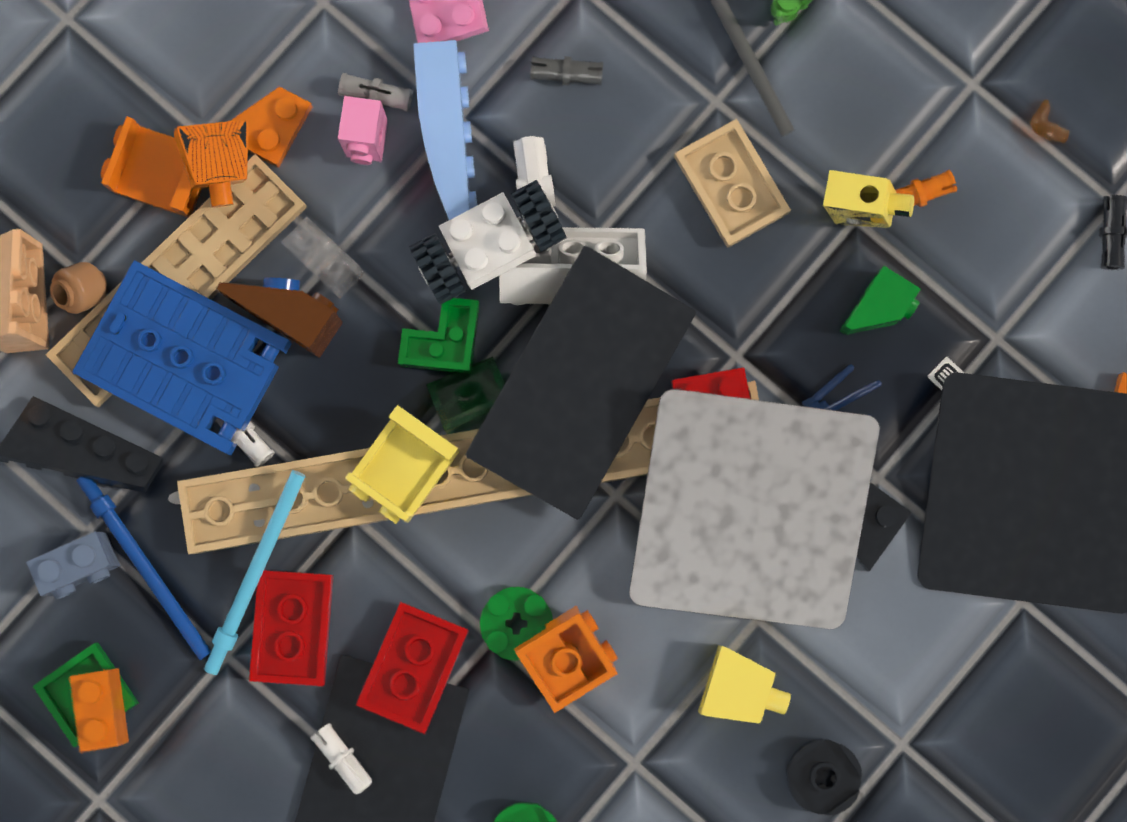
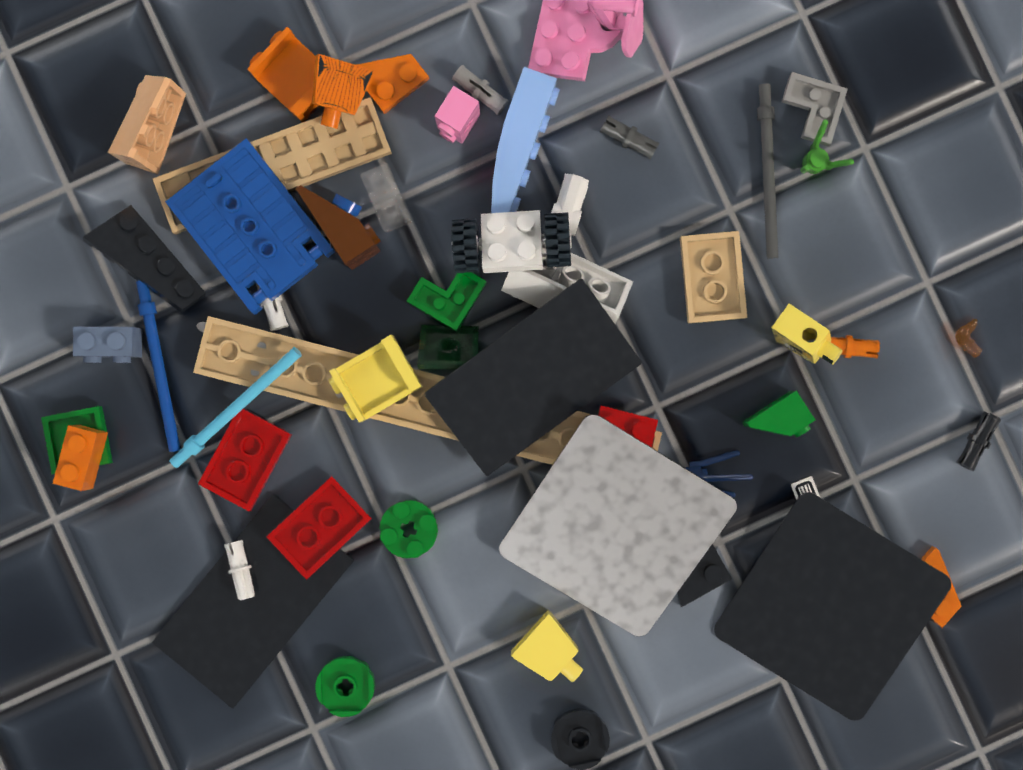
camera: 25 degrees right, 5 degrees up
(78, 287) = (197, 139): medium nougat head -> none
(567, 658) = (434, 572): orange plate -> none

